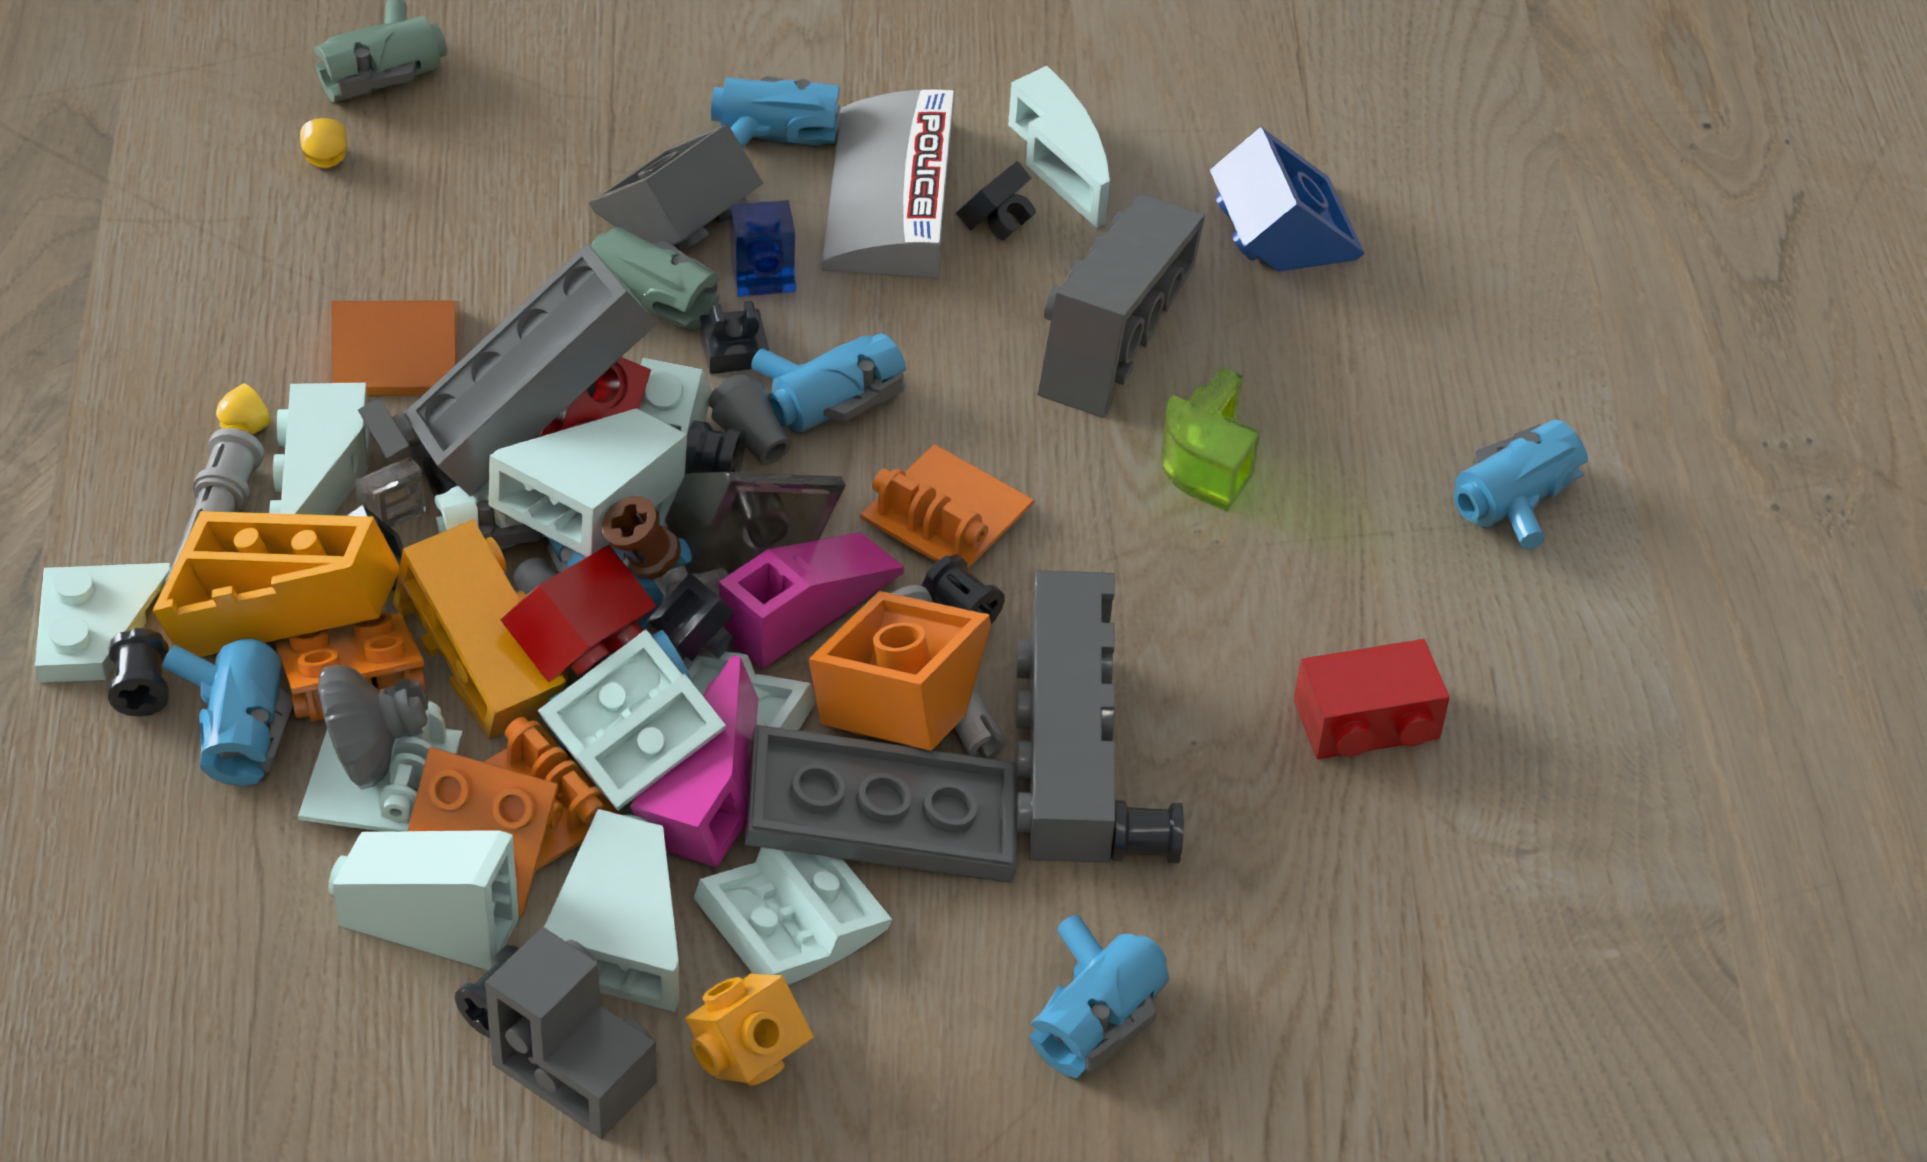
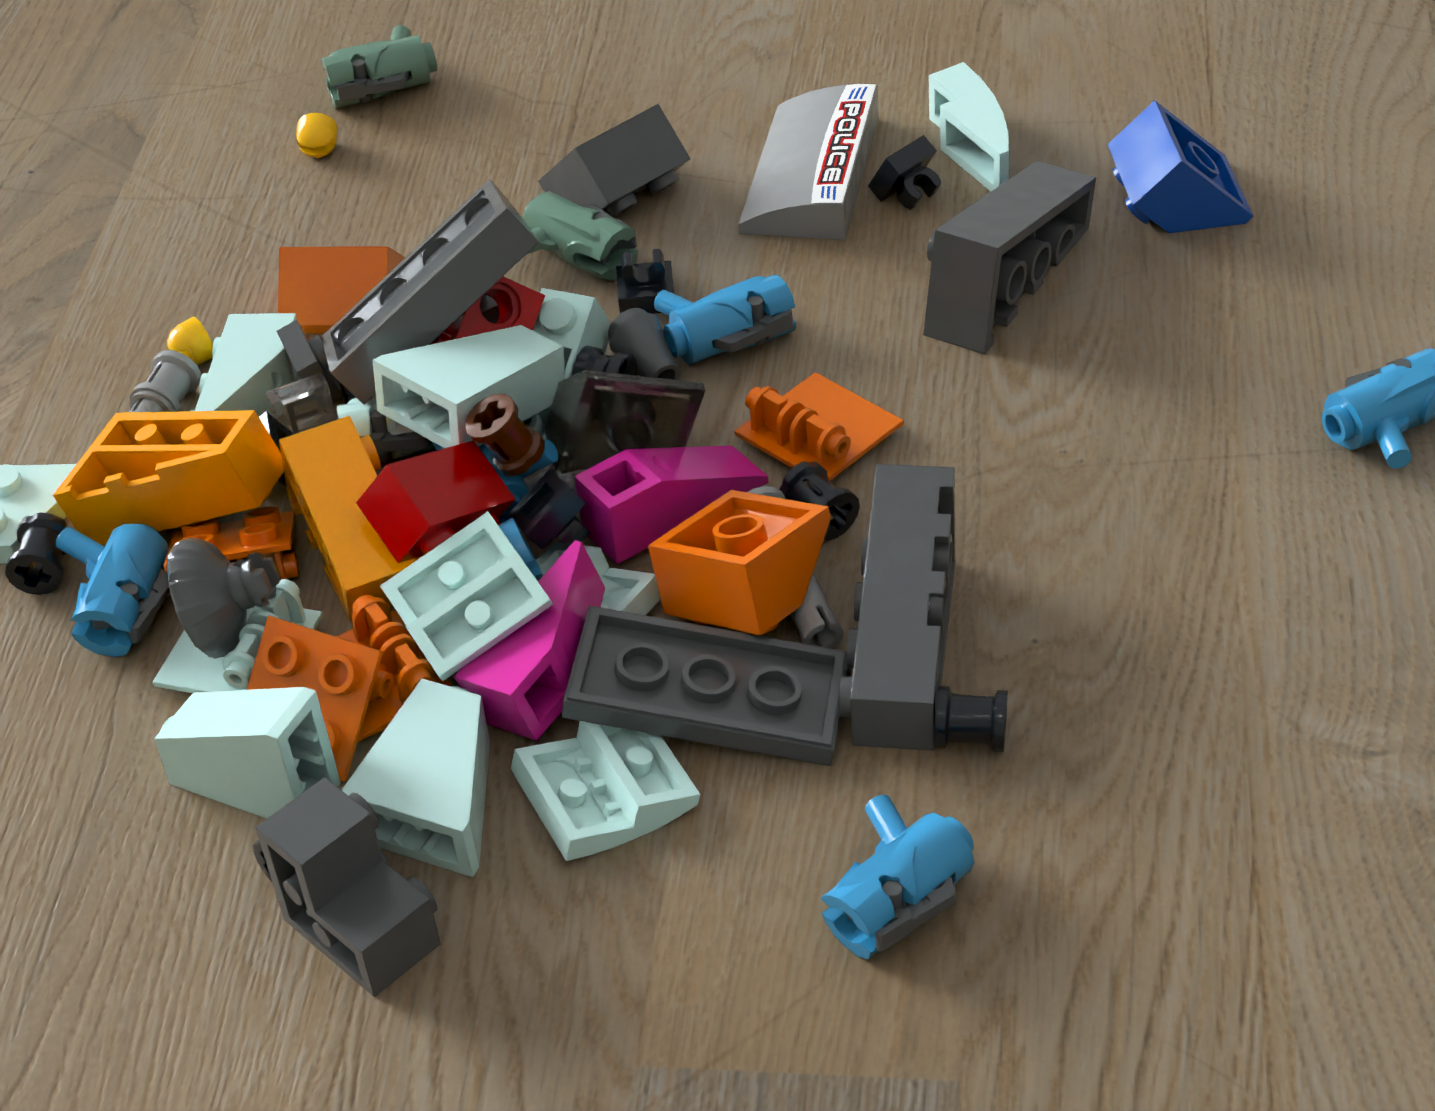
camera: 15 degrees right, 5 degrees down
(747, 1028) = (552, 892): light orange brick -> none
(762, 248) = (681, 209): clear blue brick -> none
(778, 110) = (718, 105): dark azure piece -> none
(1205, 446) = (1079, 371): clear neon green brick -> none
(1371, 699) = (1218, 600): red brick -> none

